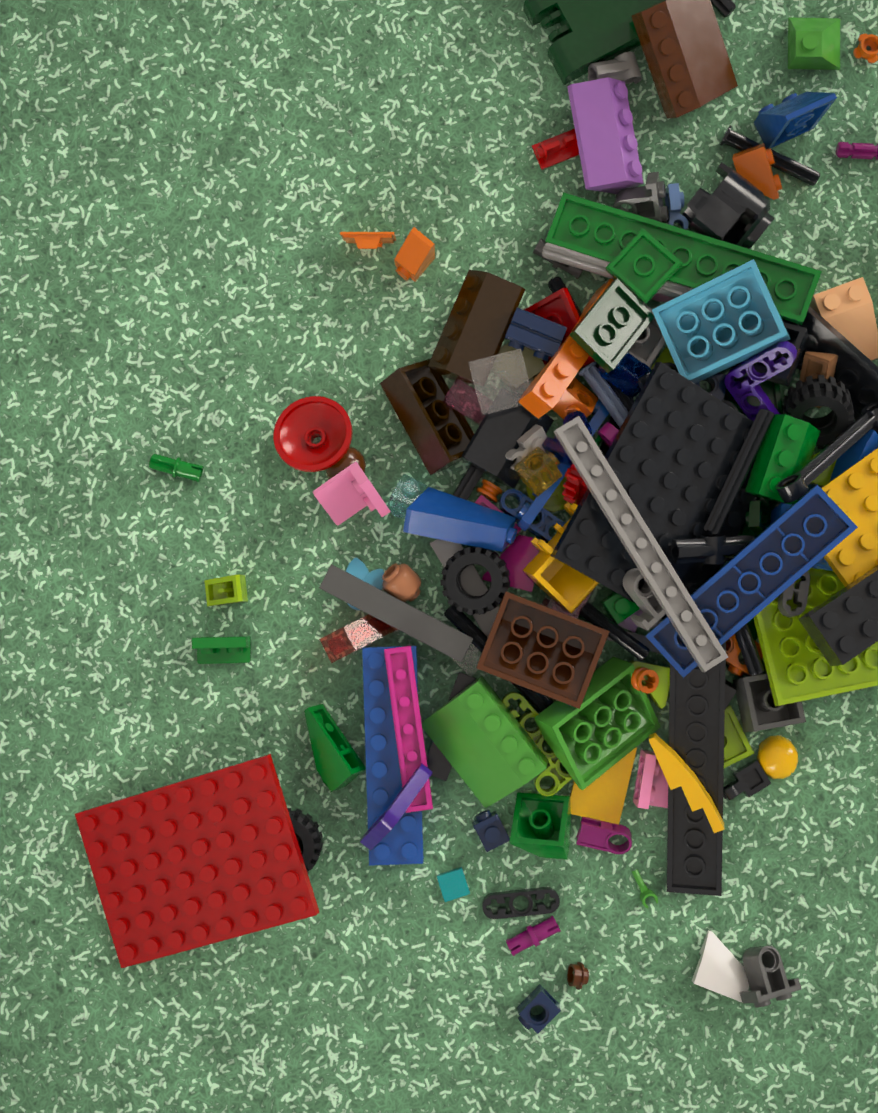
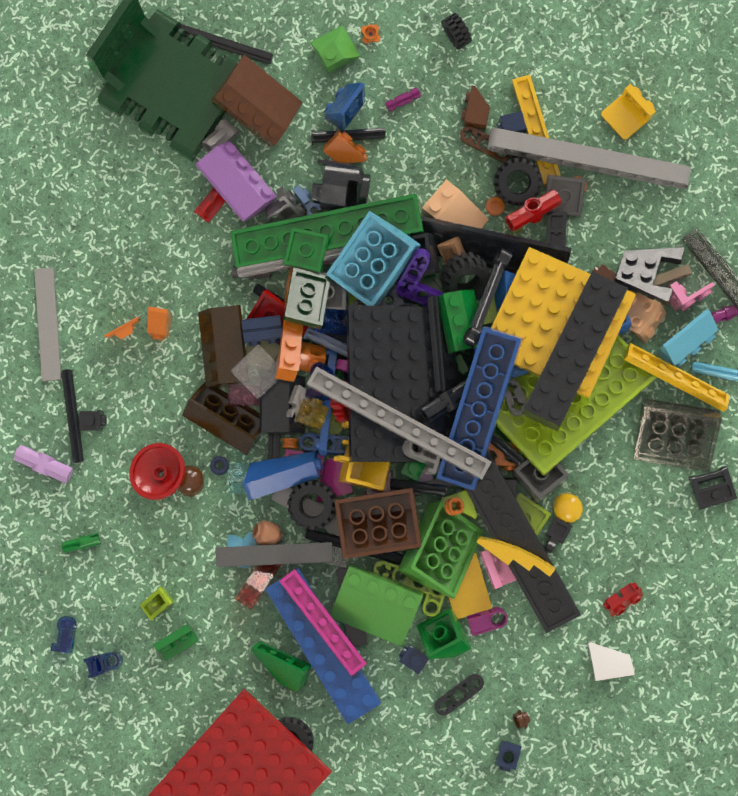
camera: 30 degrees left, 5 degrees down
(98, 567) = (66, 635): none -> clear blue leg
(118, 624) = (100, 664): none -> clear blue piece
(183, 348) = (43, 464): none -> lavender piece
(250, 310) = (72, 416): none -> black axle
(270, 329) = (92, 420): none -> black bracket
(282, 184) = (48, 324): none -> light grey tile
(348, 494) = (201, 496): bright pink bracket -> none
(391, 461) = (215, 461): none -> dark blue plate
(392, 815) = (342, 674): dark purple beam -> none
(453, 884) = (409, 707): teal tile -> none
(533, 935) = (478, 711): magenta pin -> none
(645, 892) = (532, 640): bright green hand -> none
(766, 977) = (638, 651): dark grey pin -> none
(771, 907) = (617, 605): none -> red hinge

